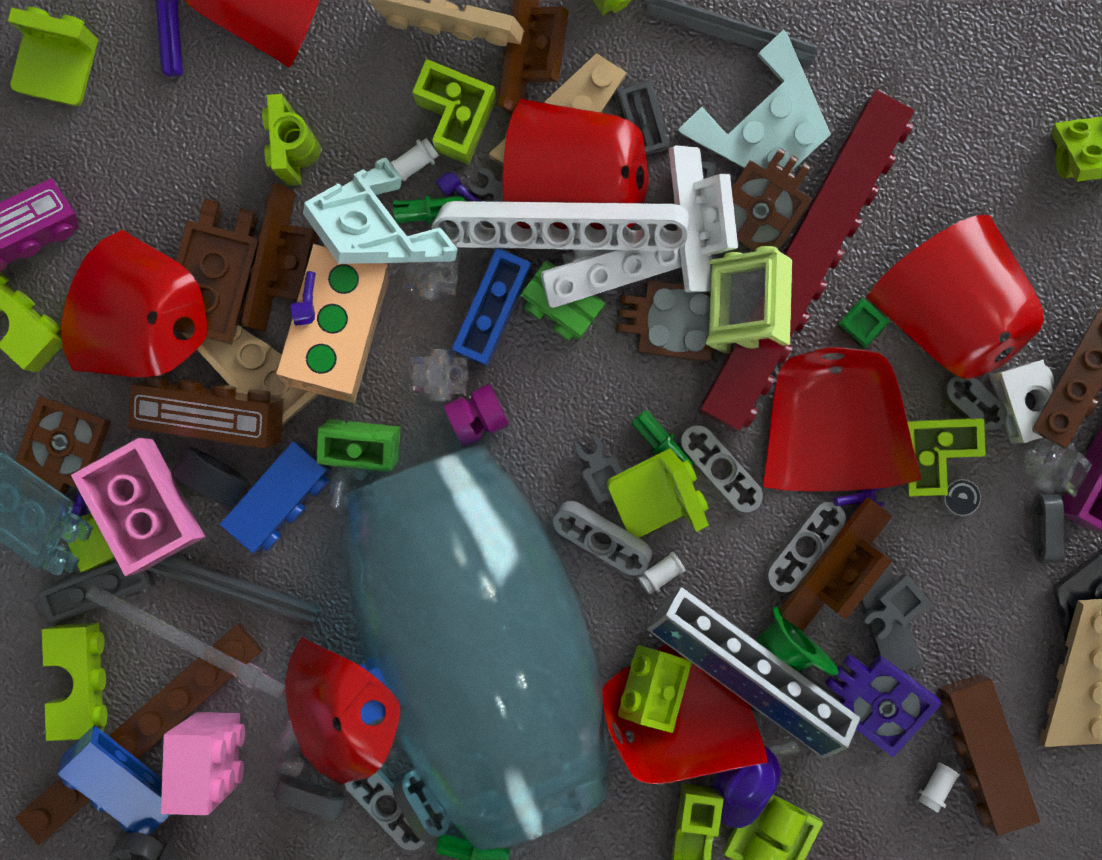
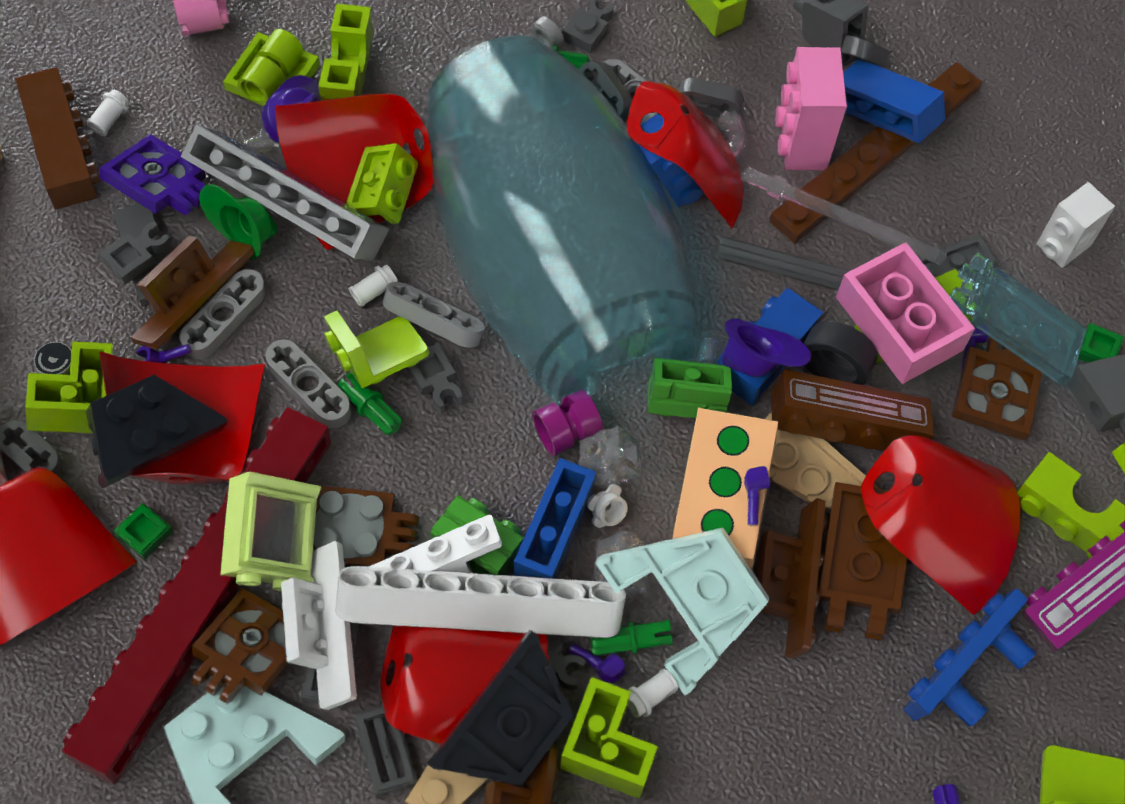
camera: 170 degrees right, 25 degrees down
(79, 652) = (948, 211): lime arch -> none
(134, 184) = (951, 665): none -> blue plate
(281, 470) = (760, 349): none -> dark purple piece
(291, 141) = (794, 697): lime plate -> none
(442, 332) = (607, 507): none -> white plate
(538, 117) = (509, 721): none -> black wing
(870, 405) = (146, 426): none -> black wing

